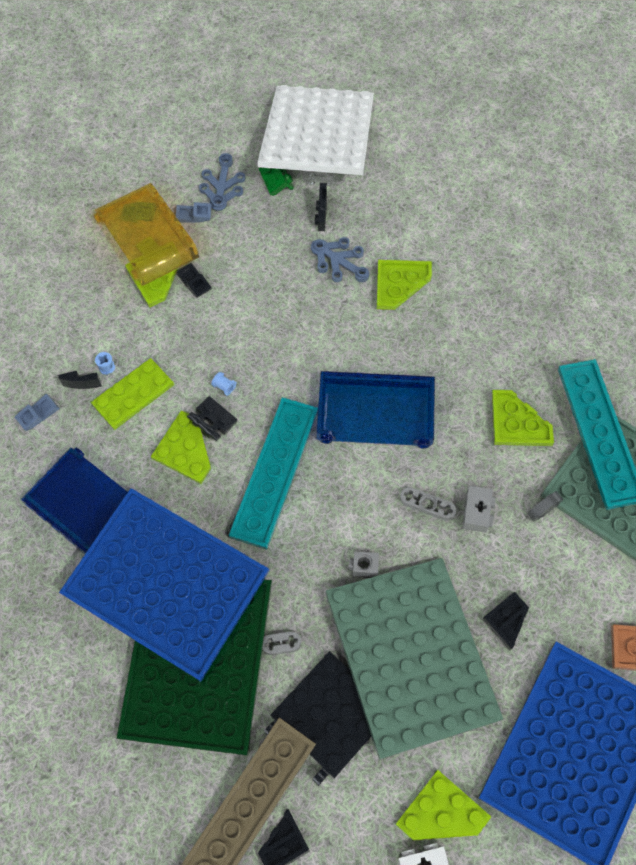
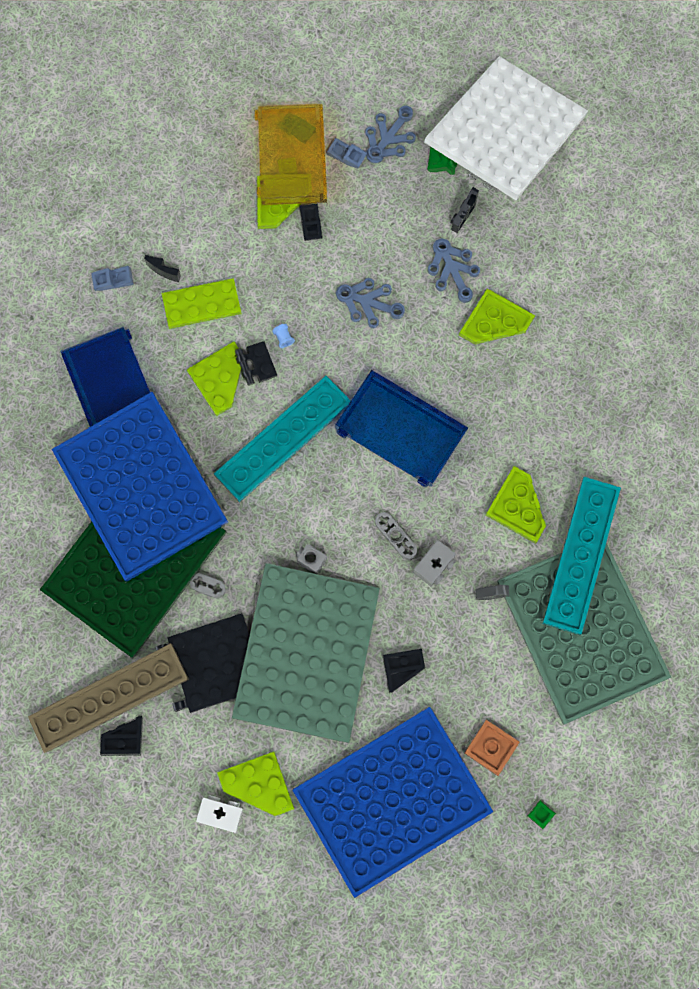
camera: 25 degrees right, 10 degrees up
(105, 363) = (193, 258): light blue bush -> none
(282, 320) = (367, 301): none -> sand blue plant

